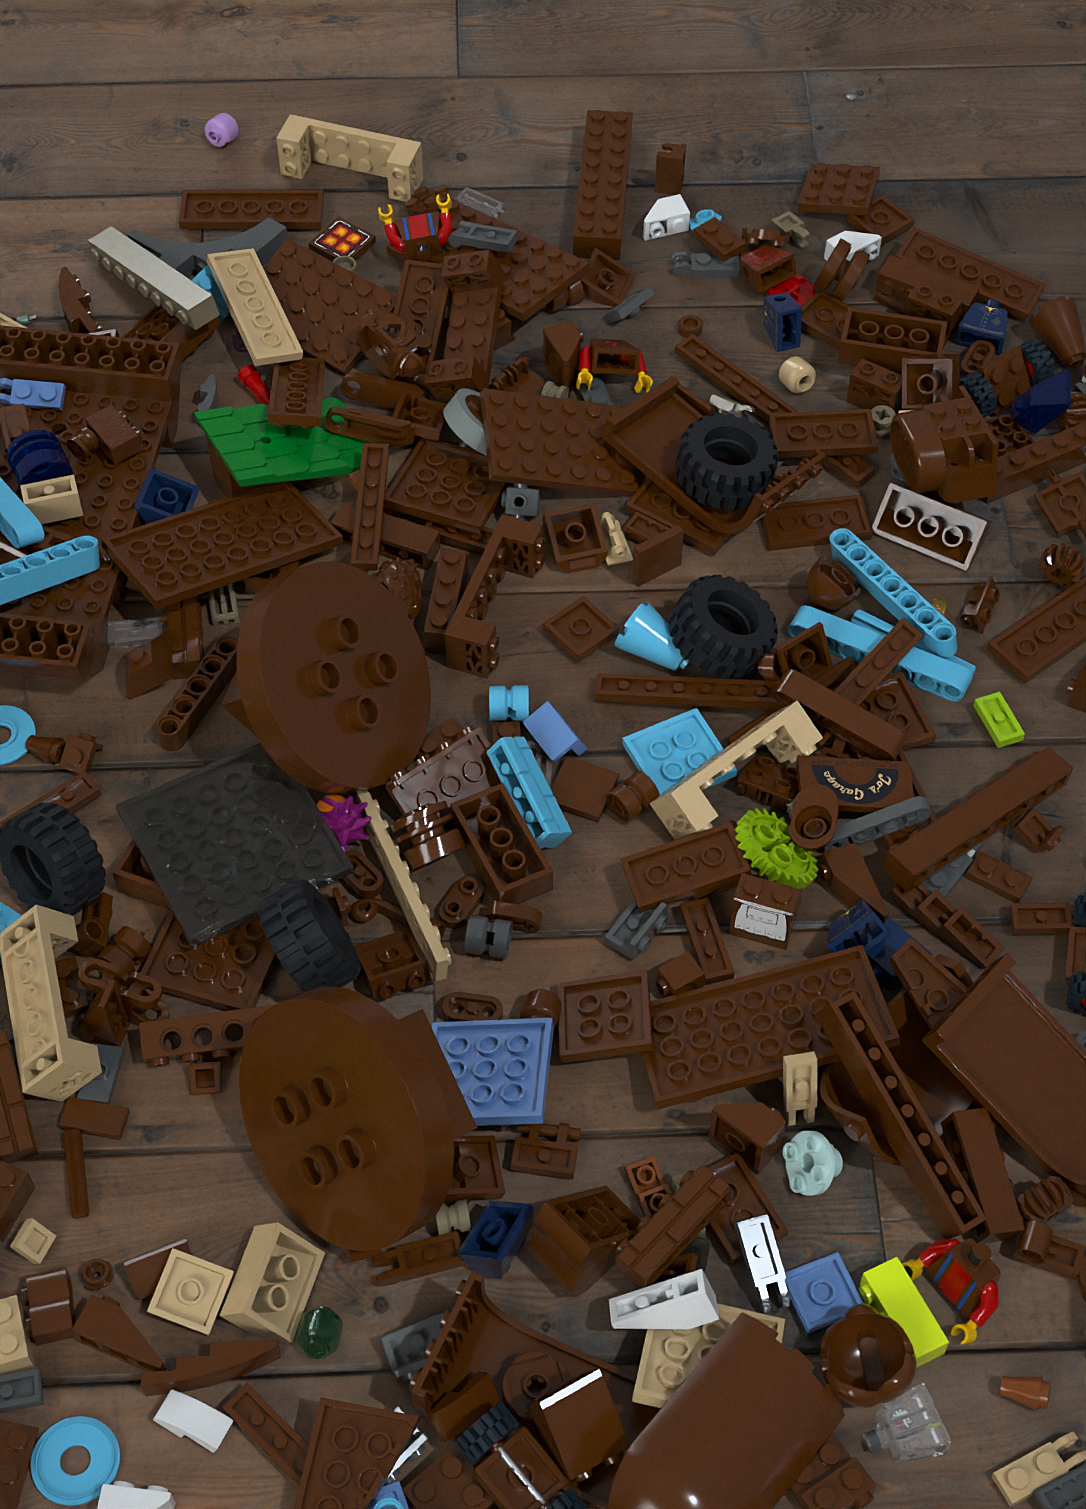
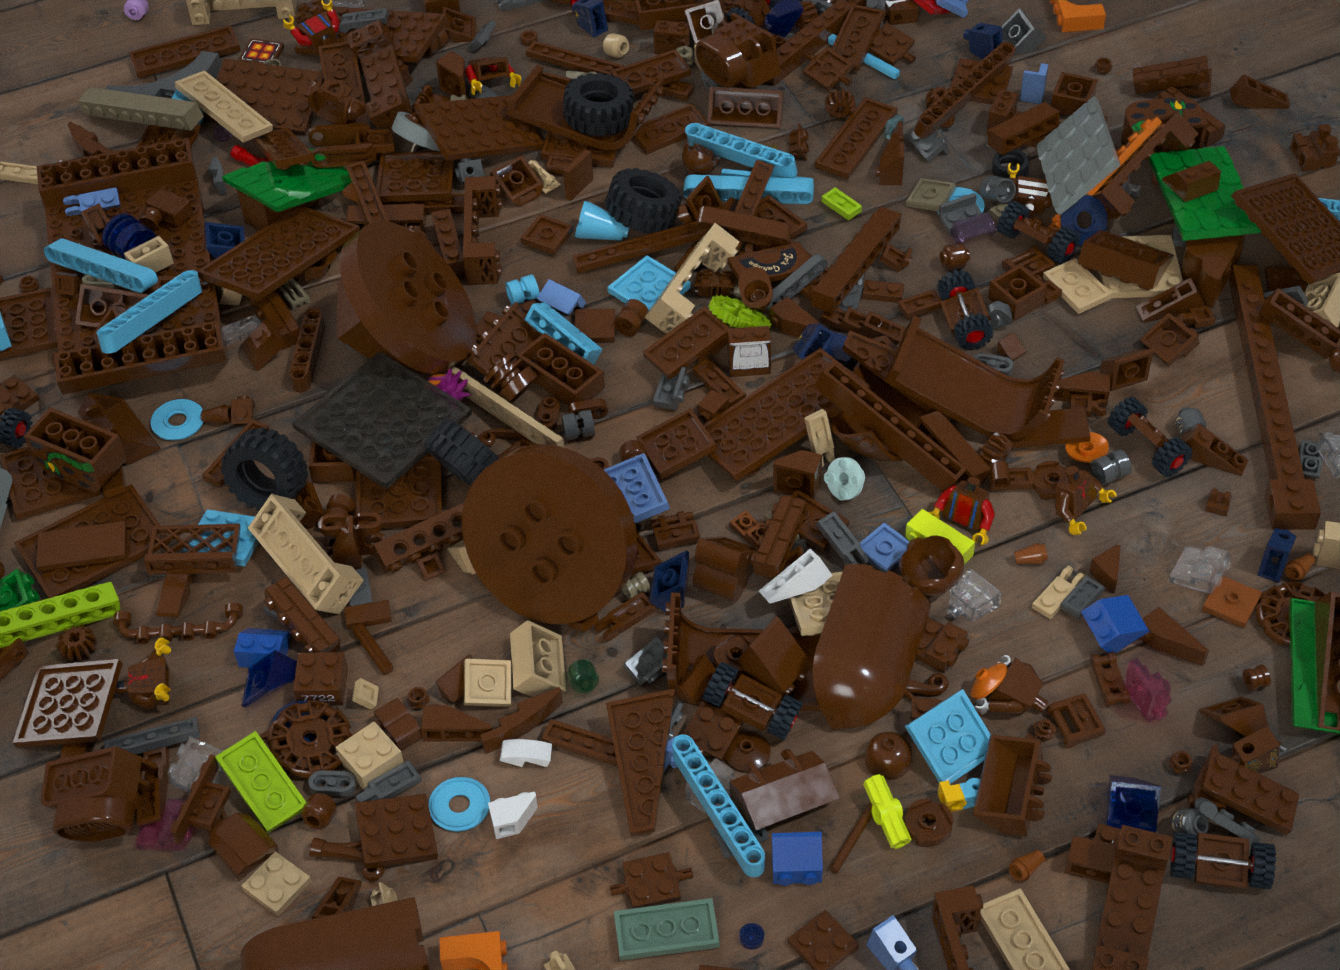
camera: 20 degrees left, 5 degrees down
(363, 876) = (479, 420): reddish brown plate -> none

